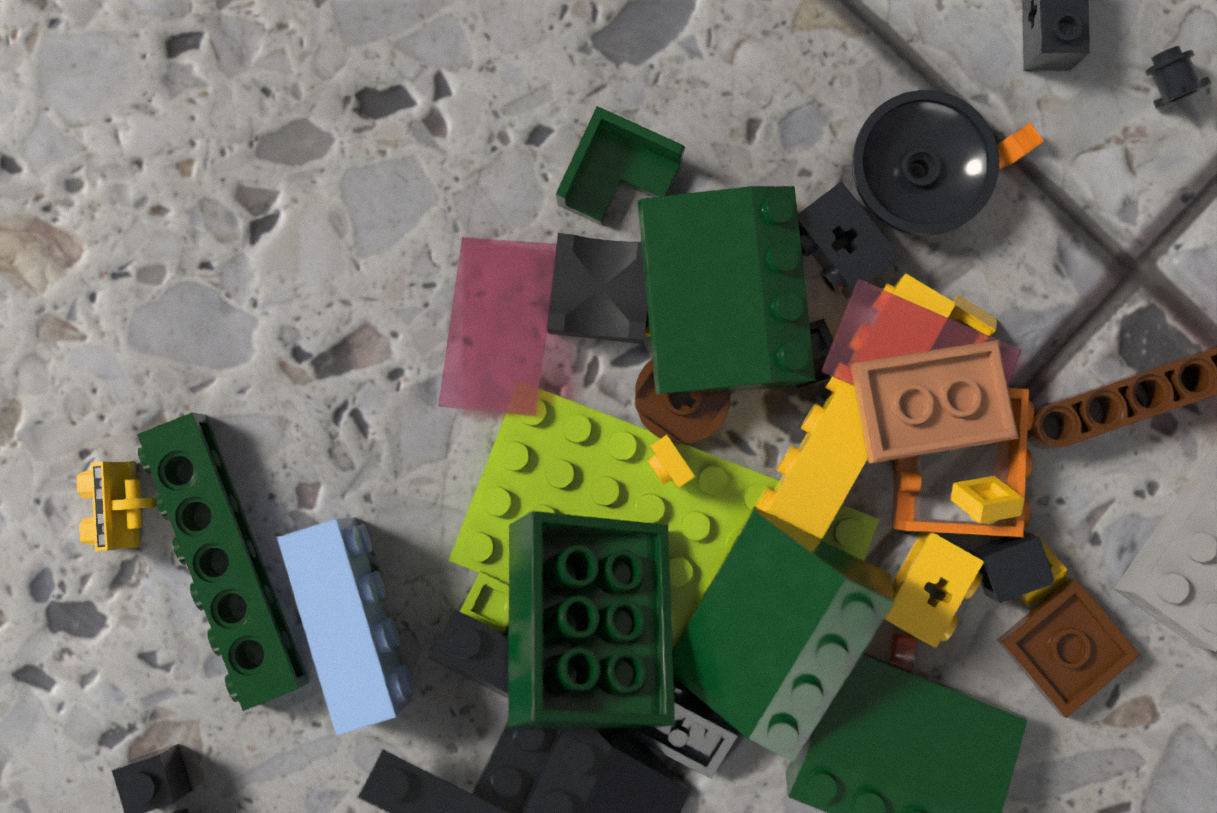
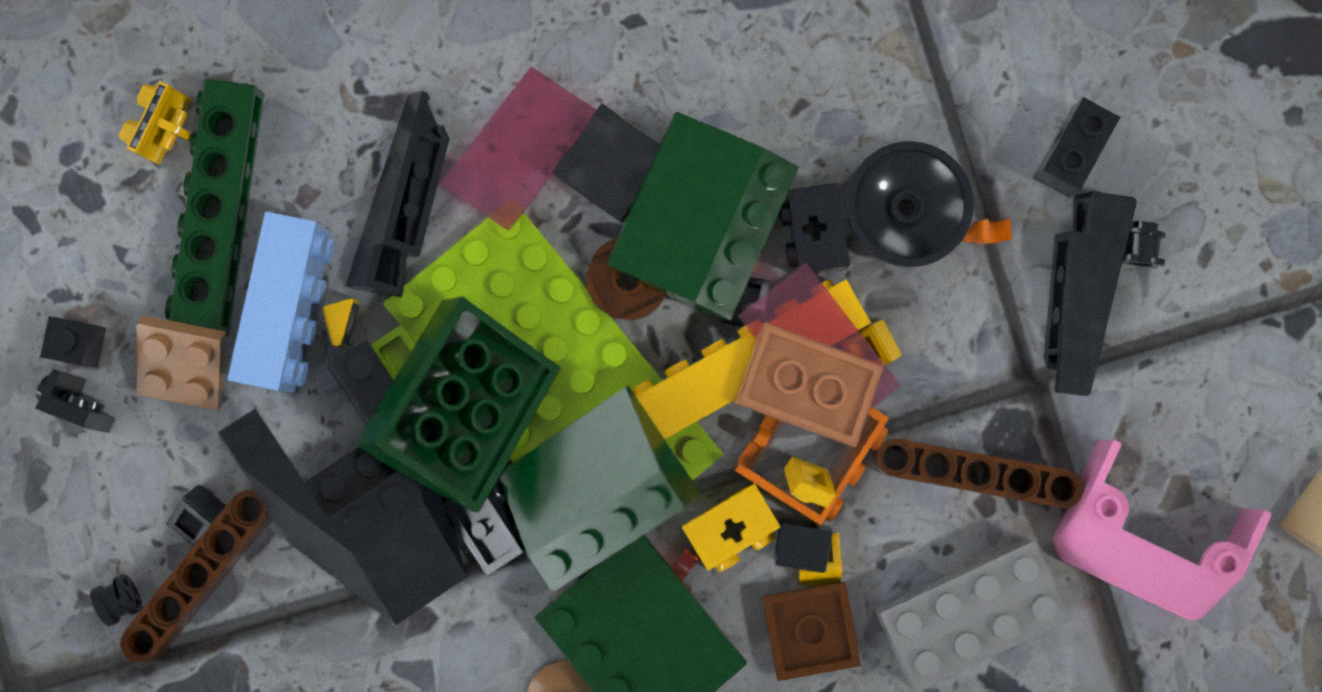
camera: 30 degrees right, 0 degrees up
(275, 739) = (180, 362): none -> medium nougat plate
(408, 446) = (401, 201): none -> black wedge
(415, 604) = (340, 321): none -> yellow slope
(613, 154) = (679, 67): dark green panel -> none
(668, 463) = (586, 321): yellow plate -> none
(1142, 150) = (1084, 287): none -> black wedge

